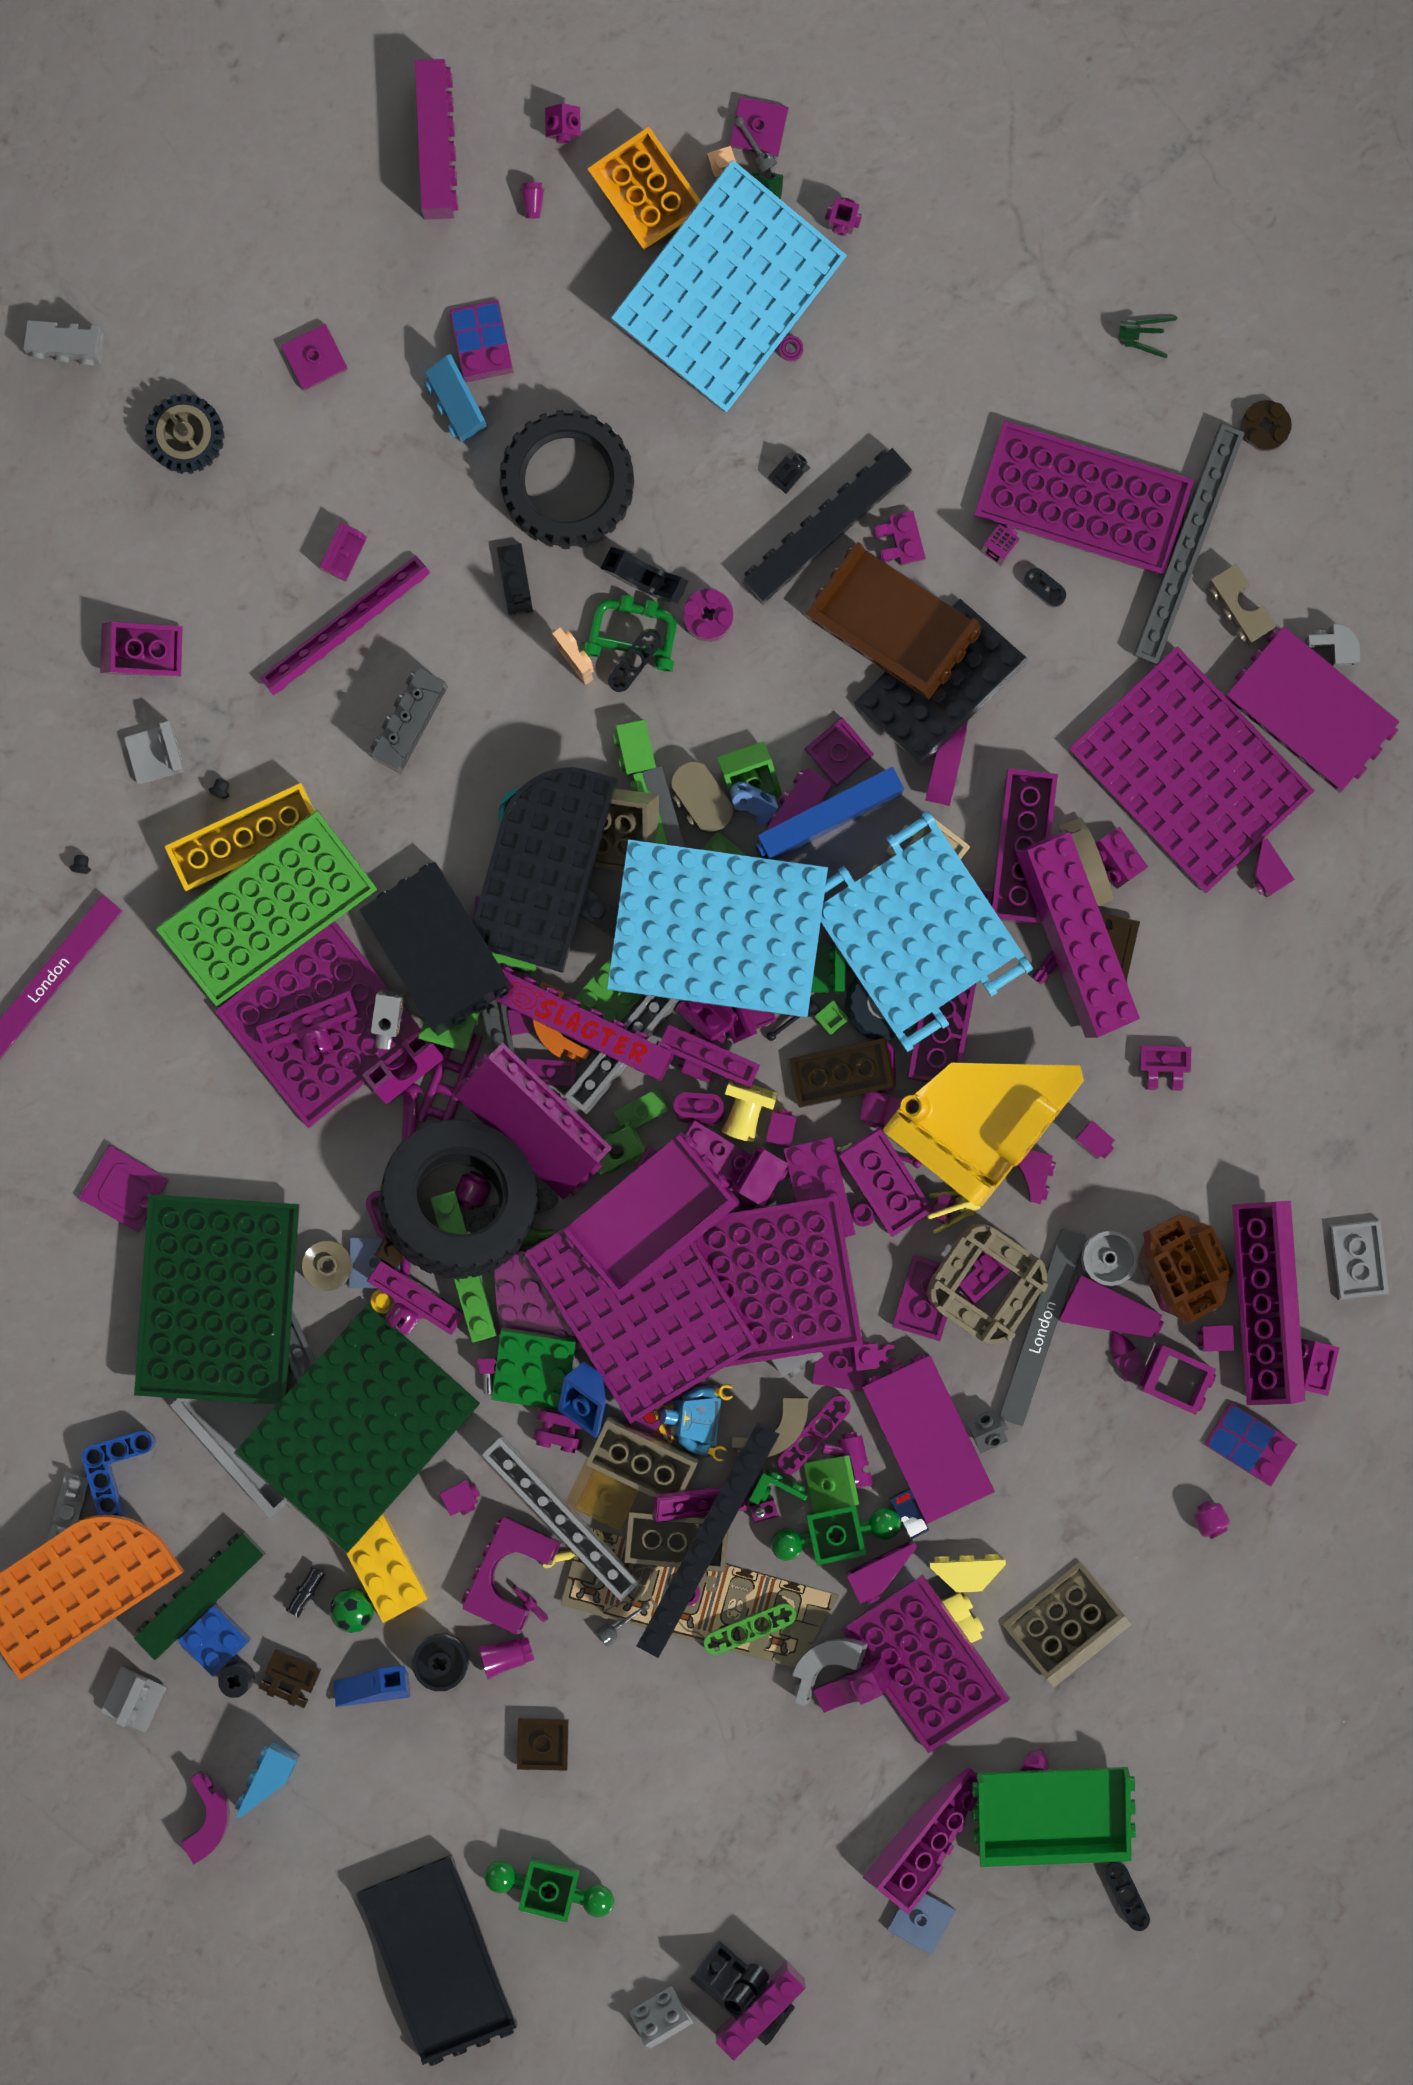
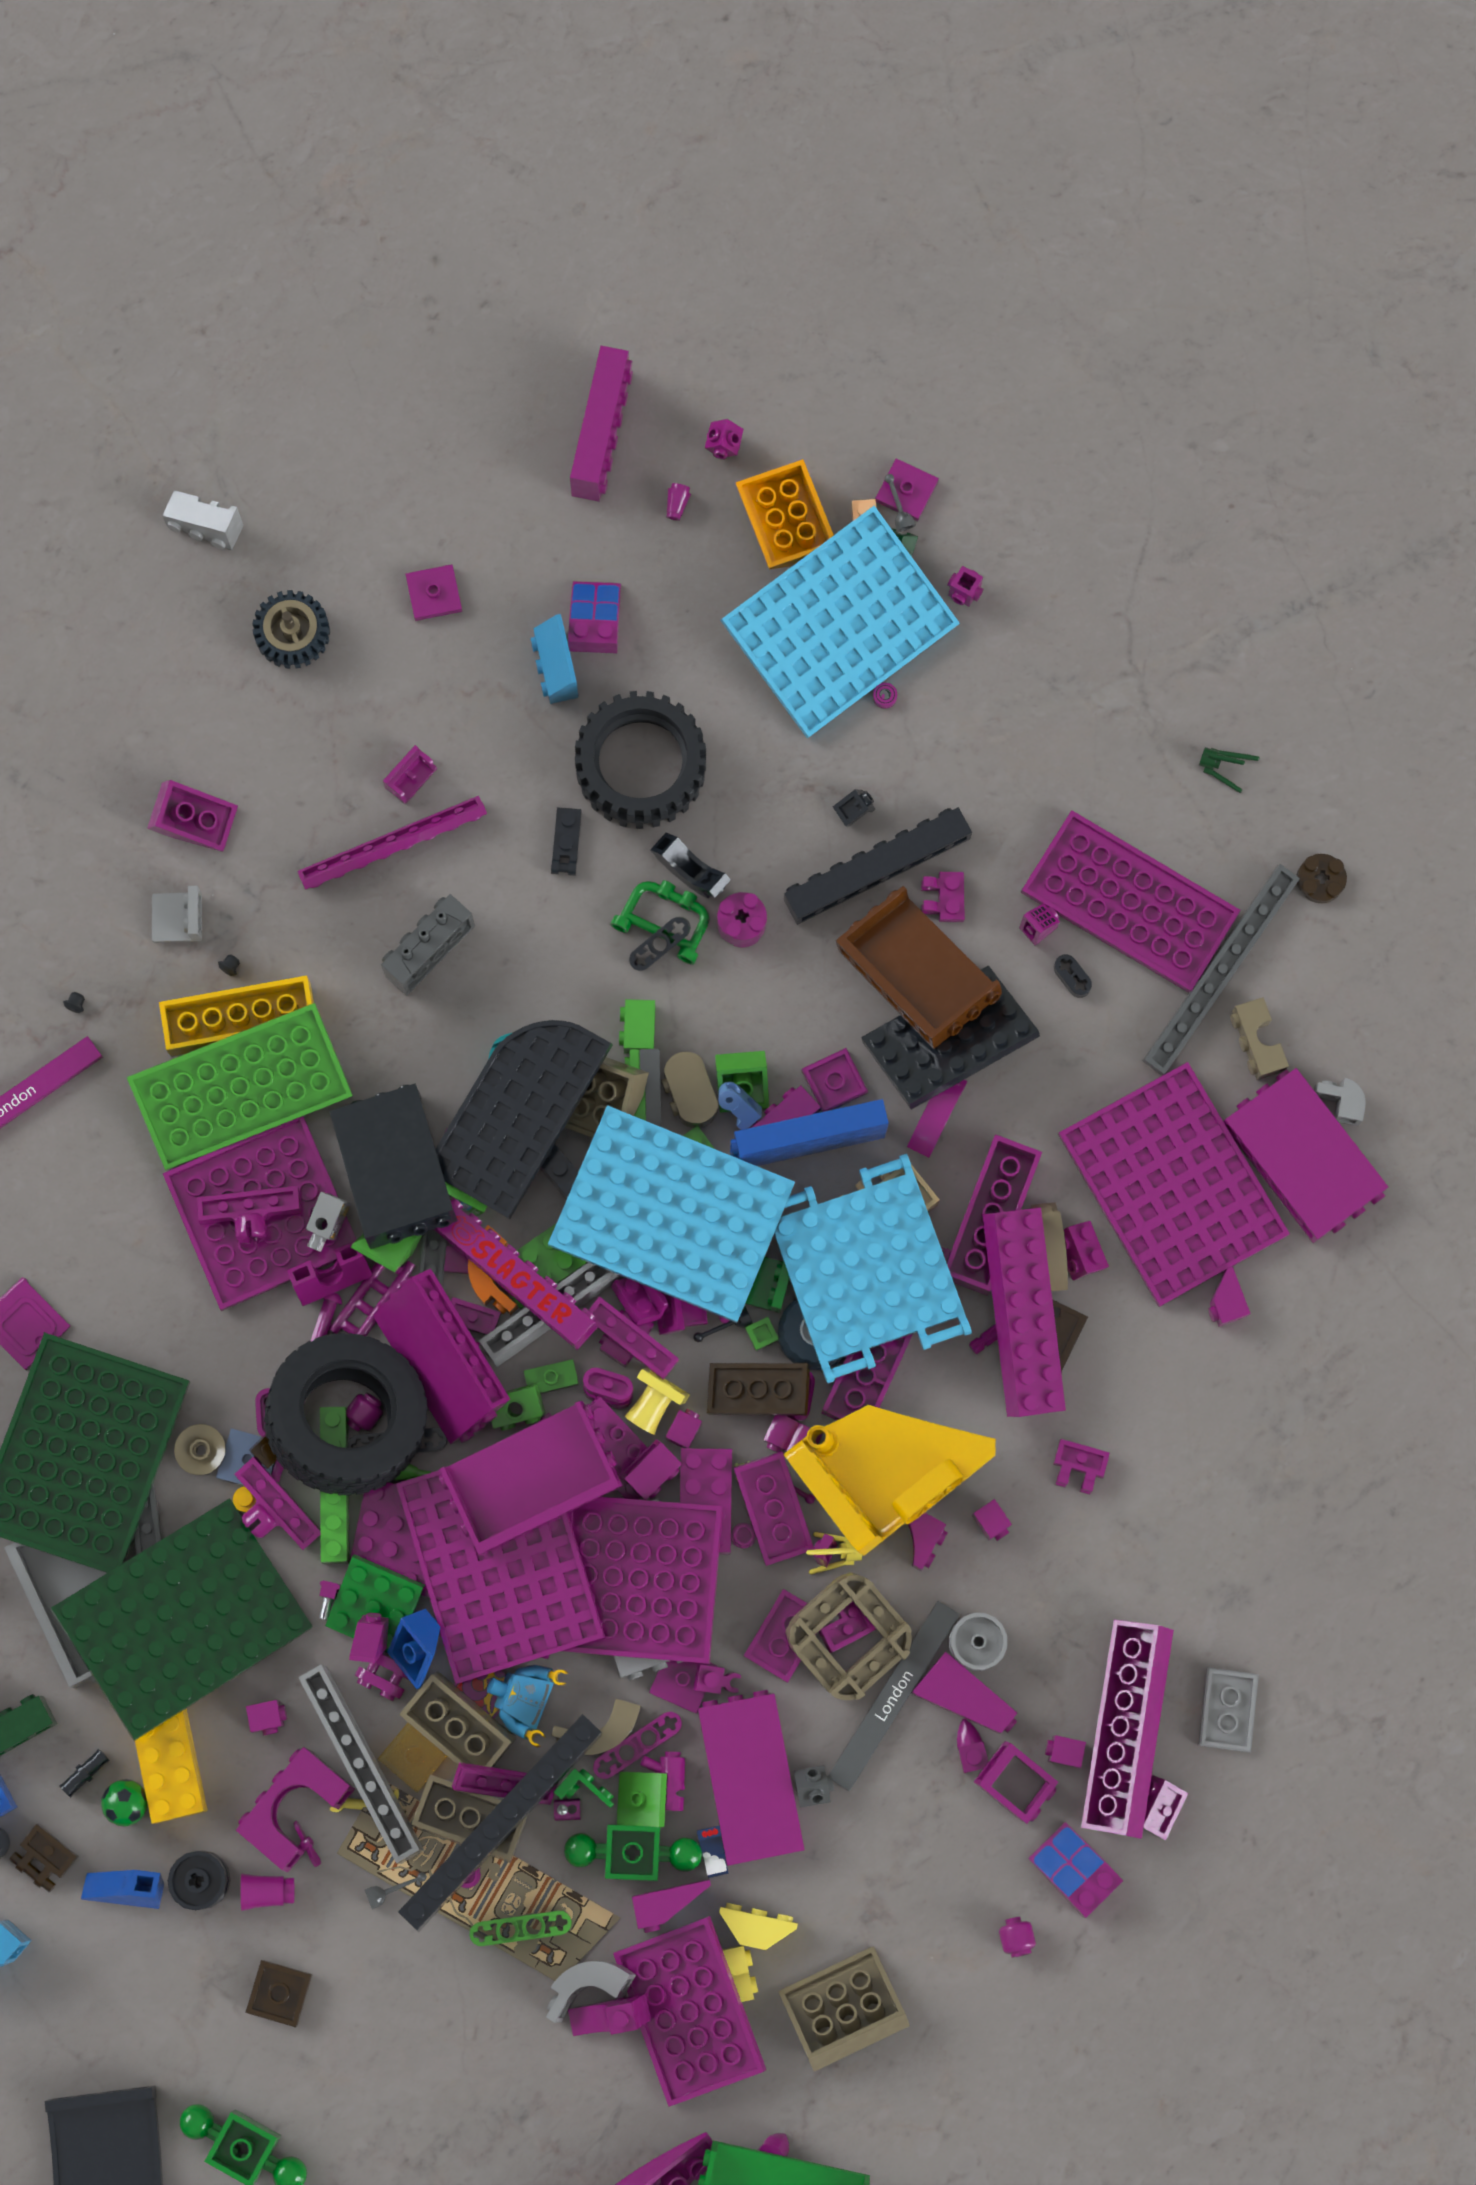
camera: 10 degrees right, 10 degrees down
(539, 1402) = (370, 1638): none -> magenta slope
(578, 661) = (602, 921): light nougat plate -> none
(1185, 1267) = (1051, 1670): reddish brown piece -> none

